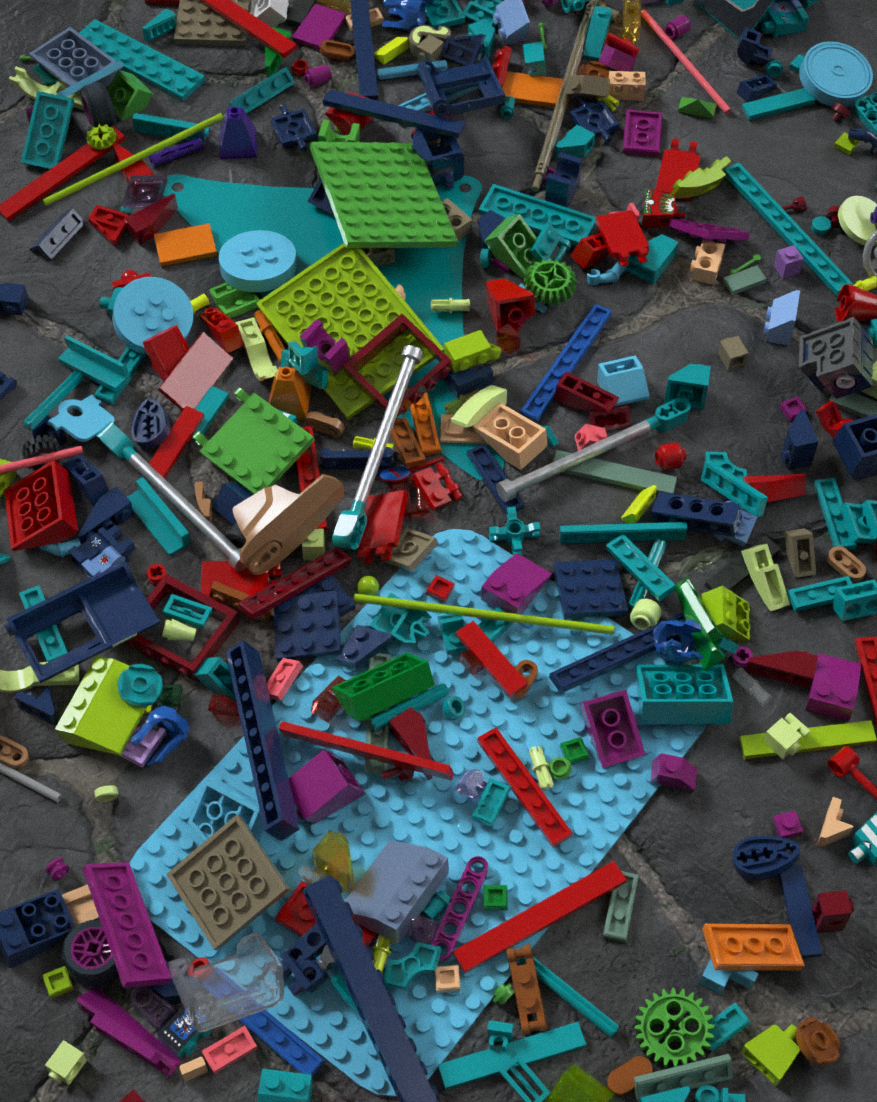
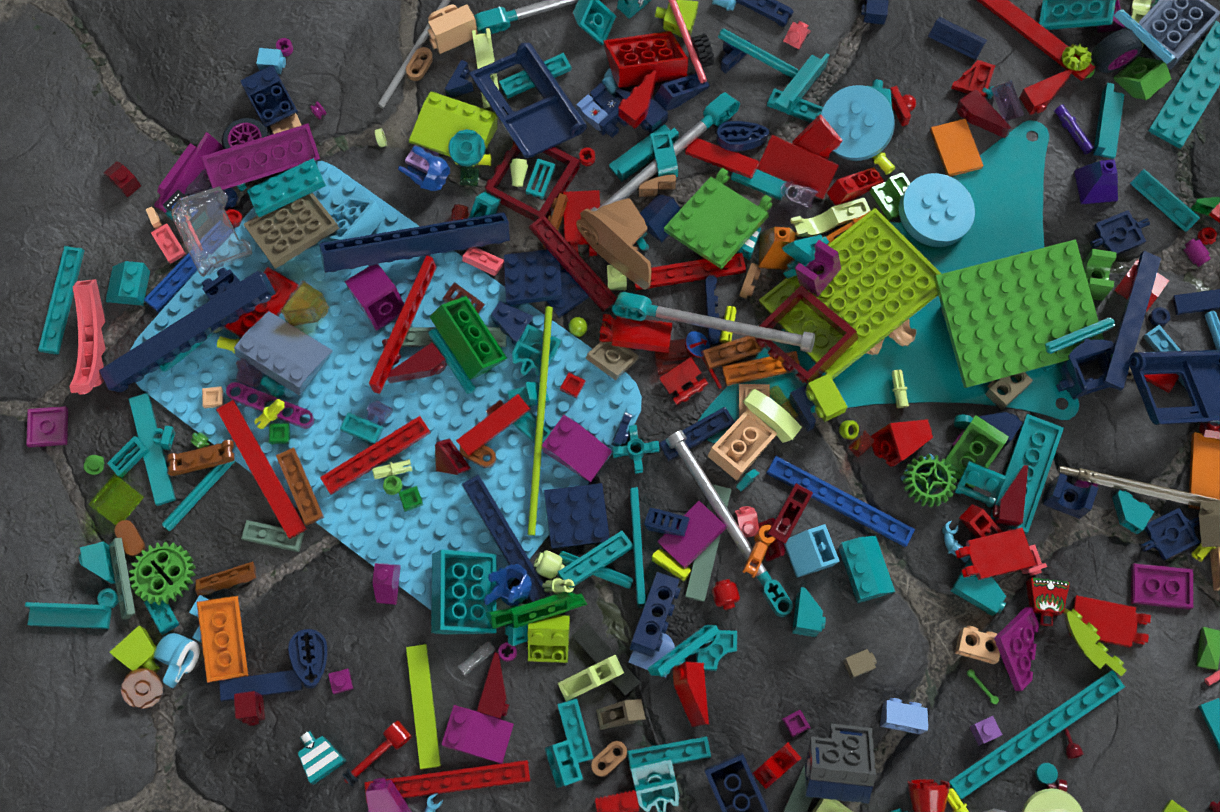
camera: 90 degrees right, 15 degrees up
(31, 369) = (797, 34): none -> coral bracket
(58, 982) = (228, 118): lime tile -> none
(65, 1063) = (165, 133): yellowish green brick -> none
(87, 425) = (737, 86): medium azure piece -> none
(105, 507) = (636, 106): none -> red slope
(133, 159) = (1051, 89): lime piece -> none
(168, 897) = (286, 187): none -> teal plate
(170, 490) = (665, 157): none -> teal piece
(227, 374) = (802, 194): none -> clear purple piece
(407, 153) = (1079, 335): none -> teal axle
(421, 960) = (223, 374): teal tile -> none
(457, 703) = (454, 405): teal piece -> none
(475, 900) = (269, 413): none -> neon yellow axle
(498, 540) = (621, 434): none -> dark blue plate
(507, 109) = (1178, 444): teal pin -> none
(529, 710) = (449, 458): none -> dark red slope
(563, 868) = (300, 486): none -> dark orange plate
(567, 221) = (1011, 505): none -> dark red slope
(585, 517) = (655, 517): none -> dark blue slope
(608, 483) = (700, 533): none -> magenta tile
(612, 728) = (430, 528): magenta slope -> none
(627, 421) = (758, 551): none -> orange piece
(645, 342) = (866, 568): none -> teal slope
(674, 596) = (558, 585): none -> yellowish green axle
(677, 953) = (225, 579): none -> dark orange plate
(744, 280) = (961, 684): sand green tile -> none
(772, 999) = (179, 654): none -> medium azure piece
(784, 737) = (418, 679): yellowish green brick -> none
(799, 443) = (744, 718): dark blue slope -> none
(833, 828) = (331, 718): light nougat slope -> none

